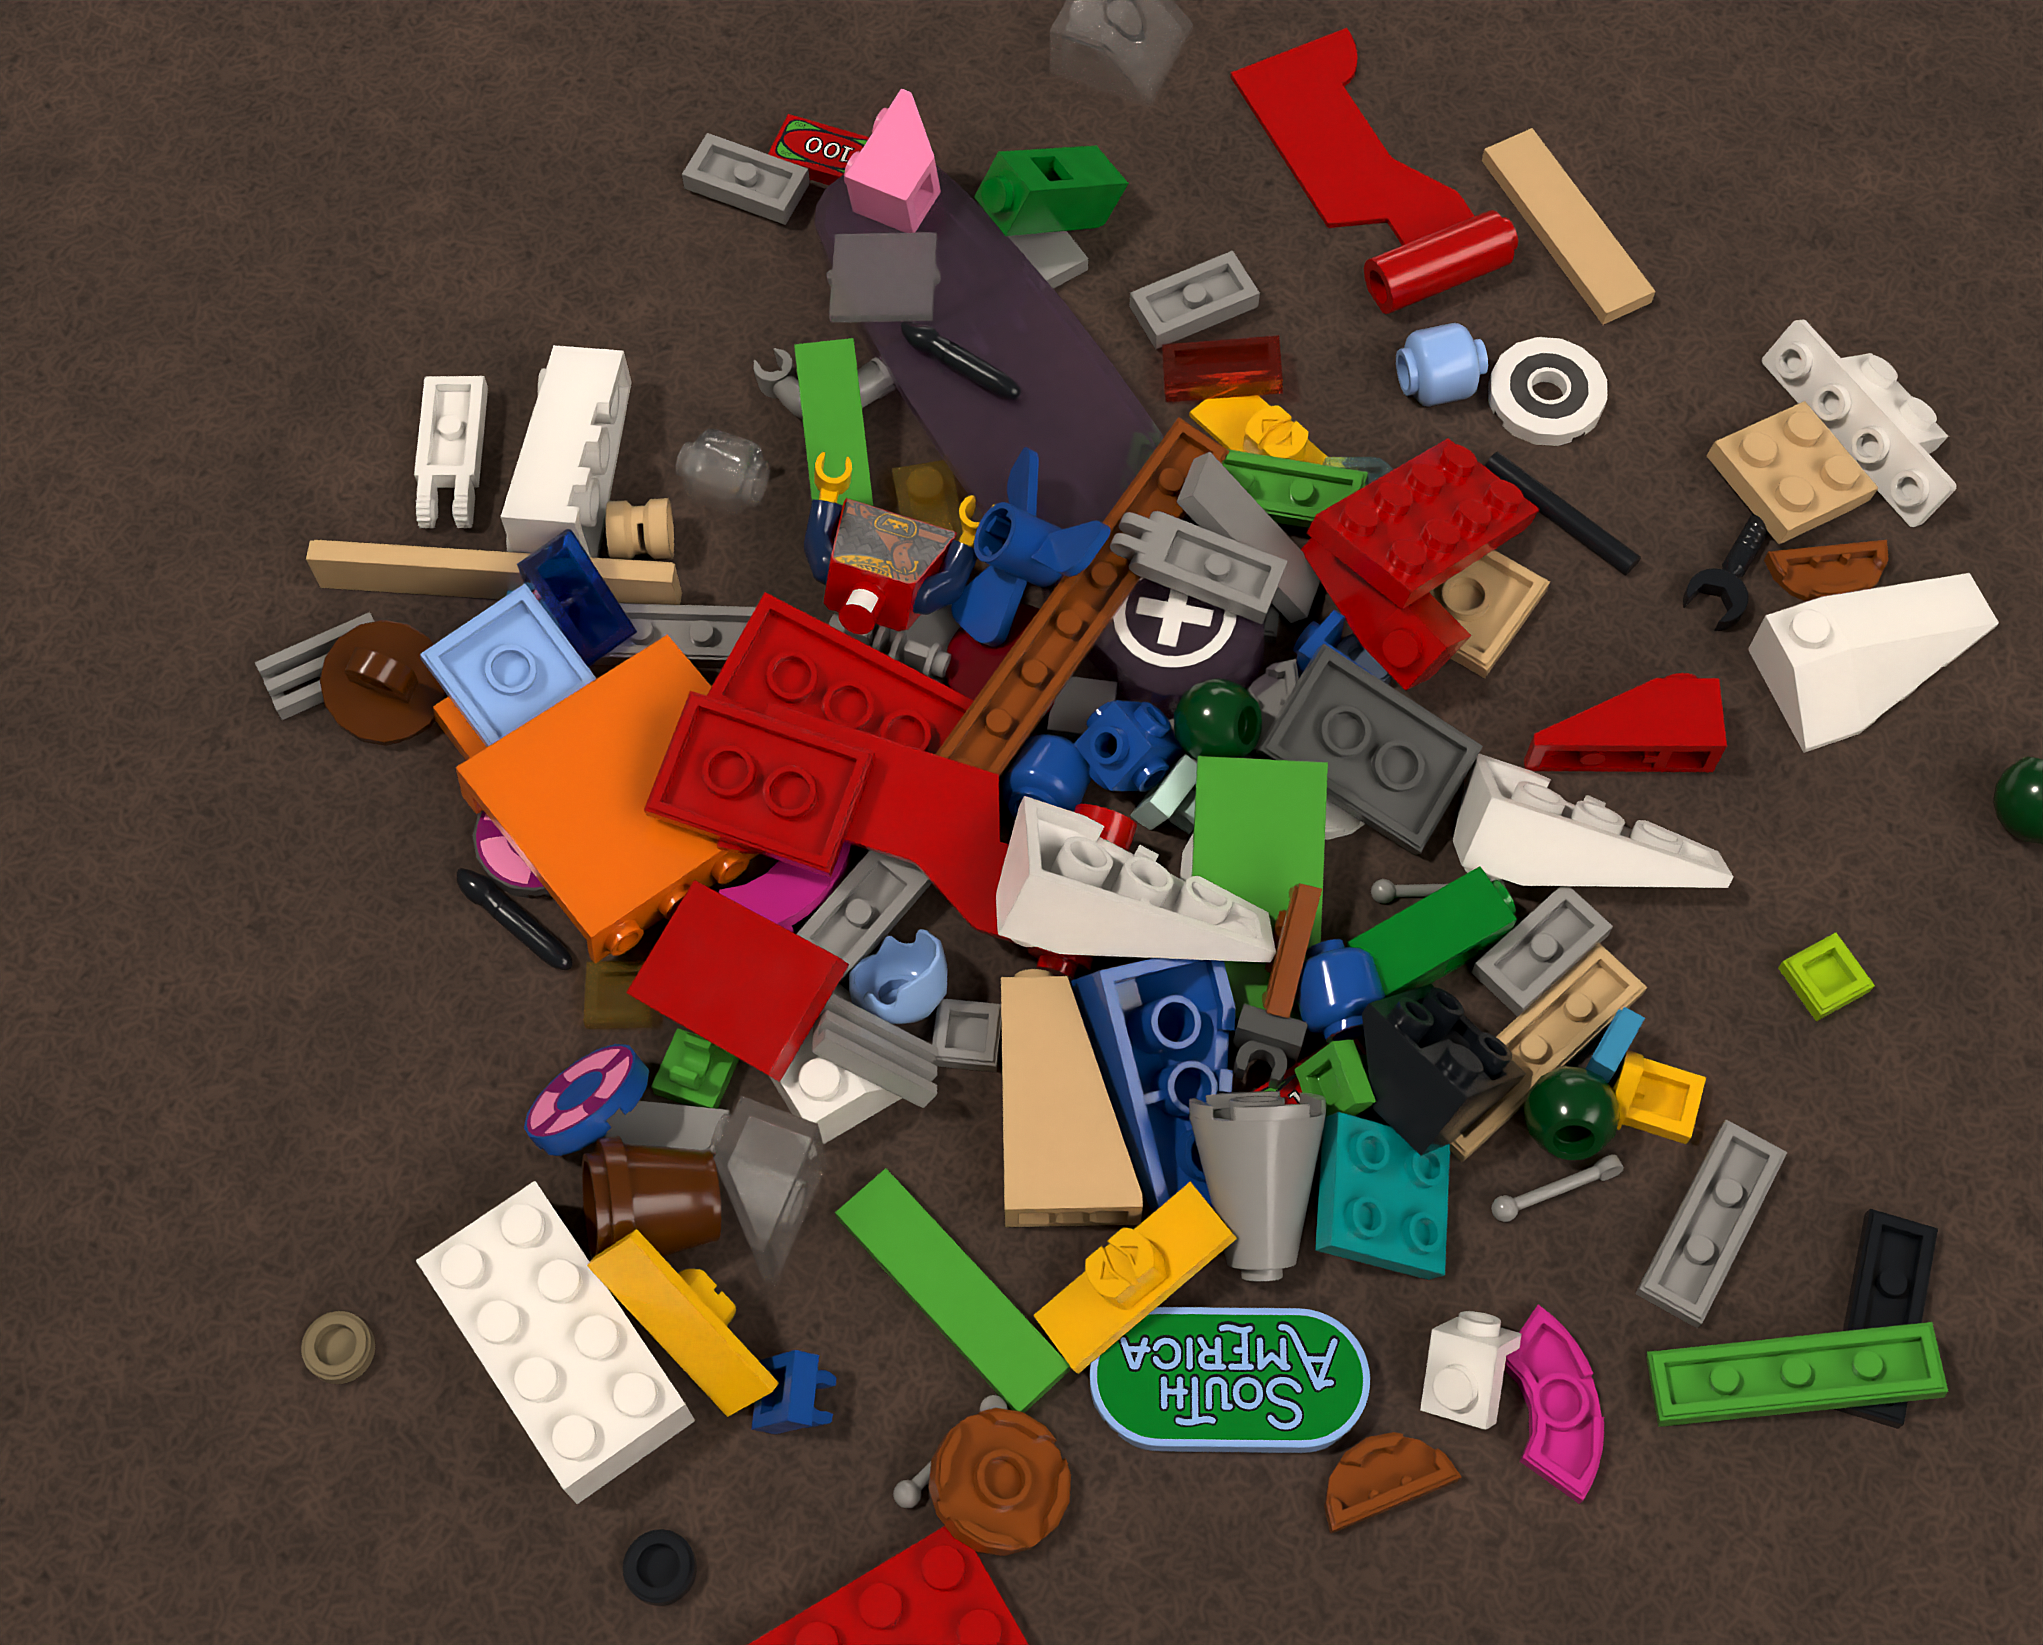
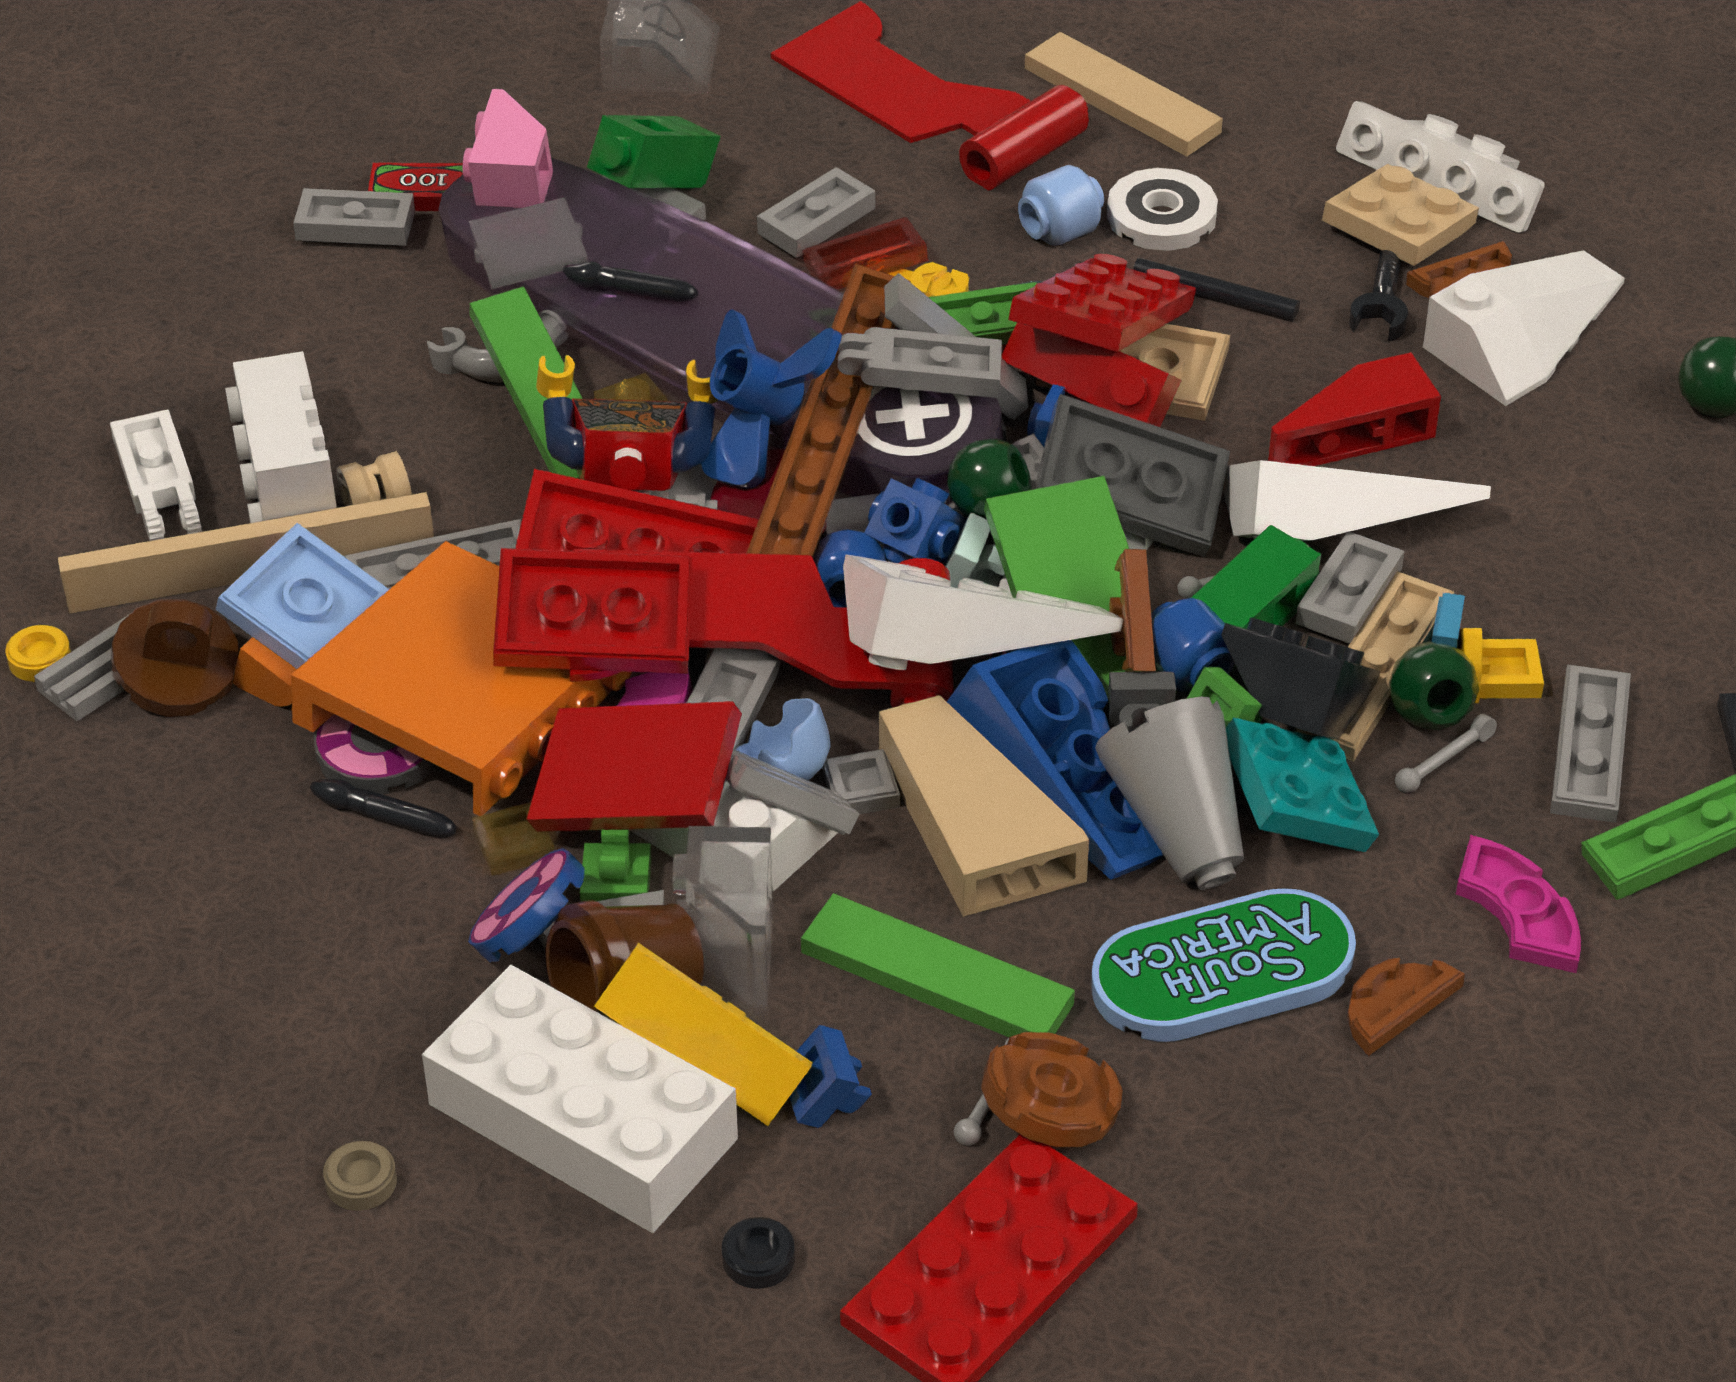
camera: 20 degrees left, 20 degrees down
(271, 628) = (35, 650): none -> yellow tile
(576, 597) = (342, 523): clear blue slope -> none
(723, 471) = (435, 425): clear head -> none
(1133, 1276) = (1103, 900): yellow piece -> none
(1467, 1368) = (1432, 889): white bracket -> none
(1826, 976) = (1602, 549): lime tile -> none

